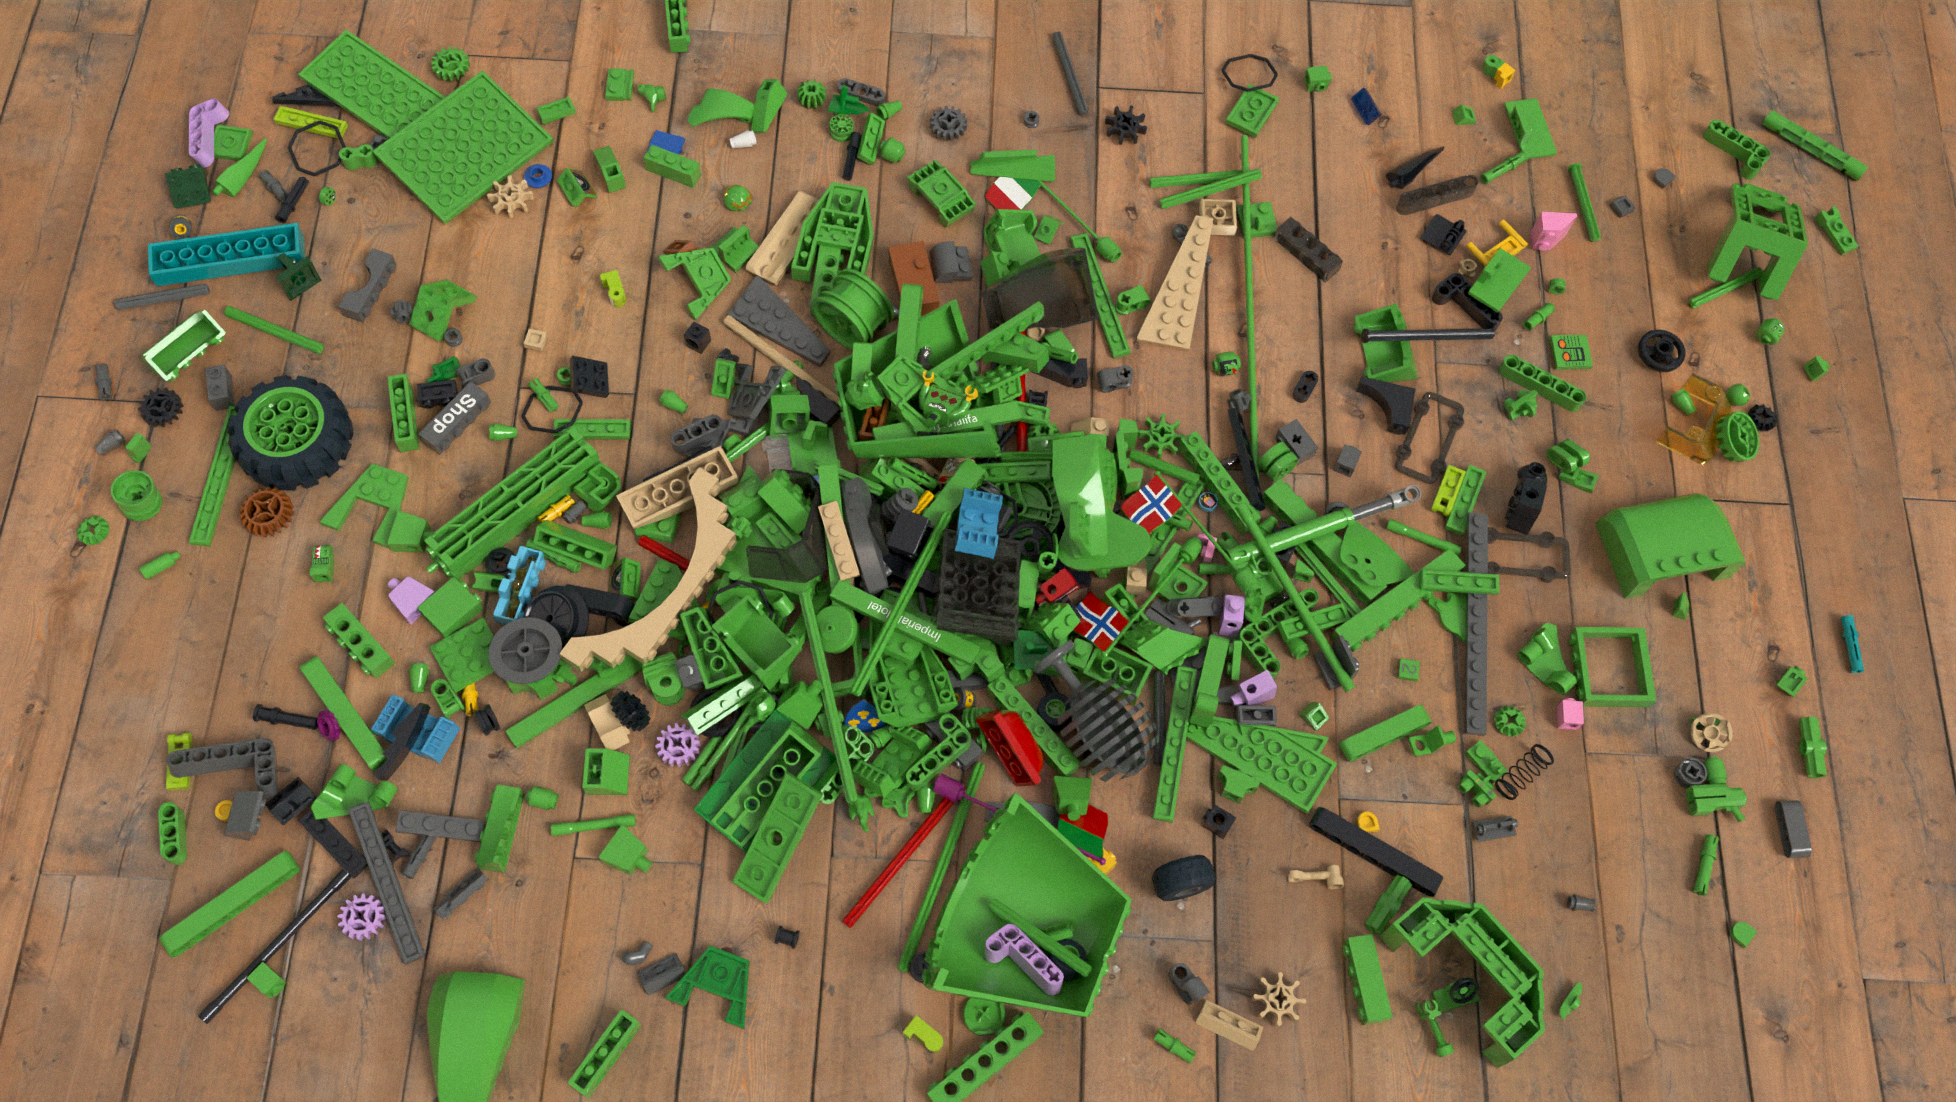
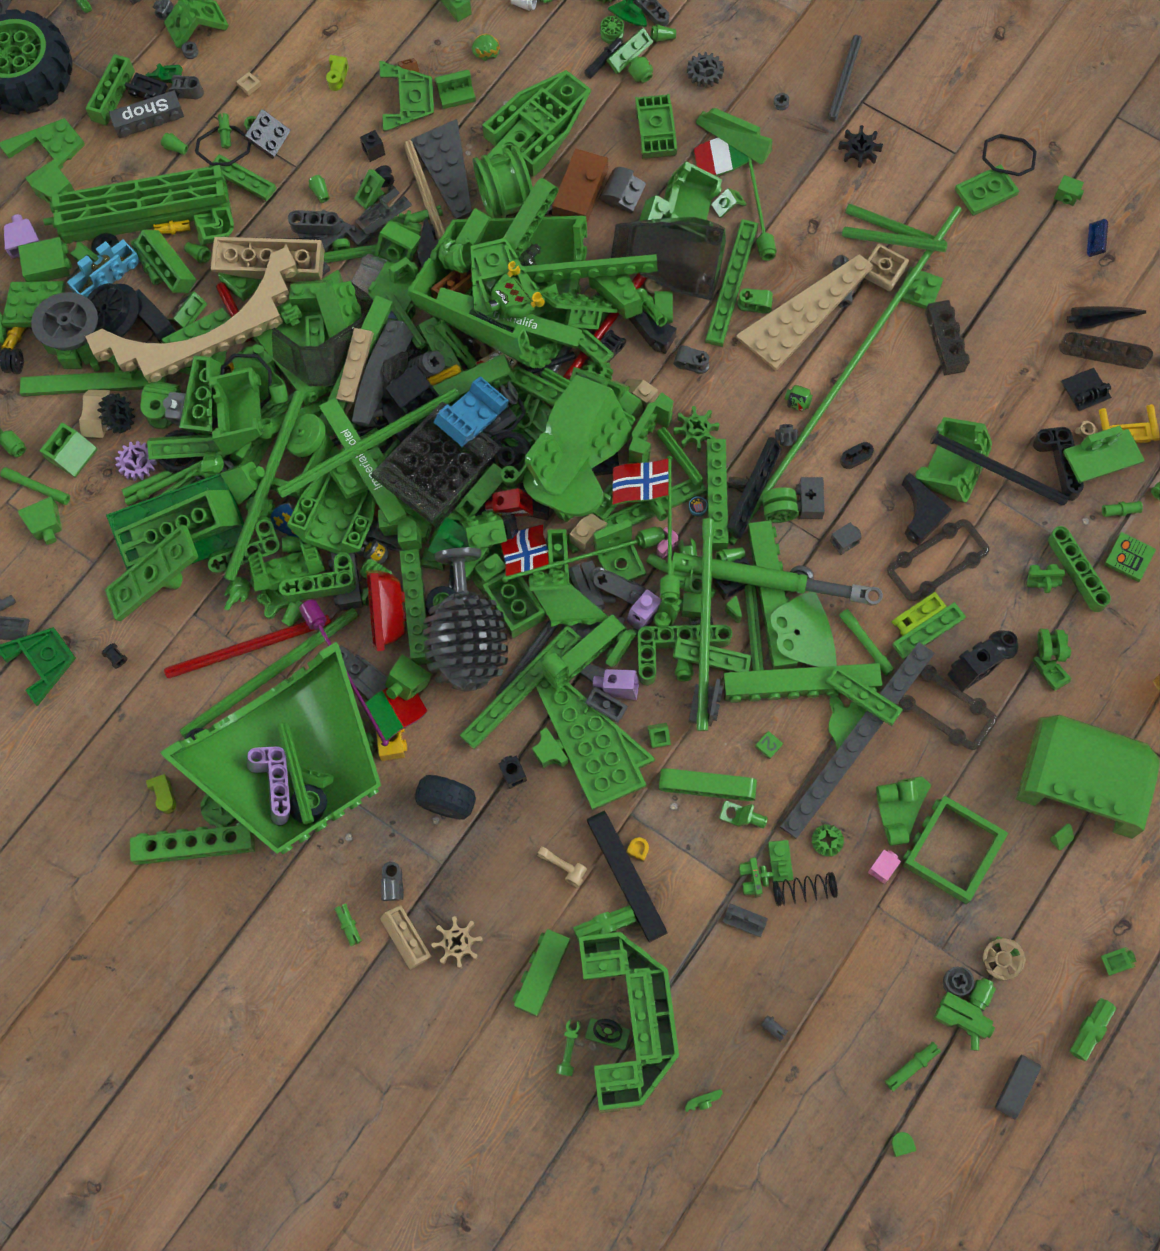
camera: 40 degrees right, 5 degrees up
(571, 515) = (185, 236): dark grey pin -> none
(779, 247) = (479, 108): tan plate -> none

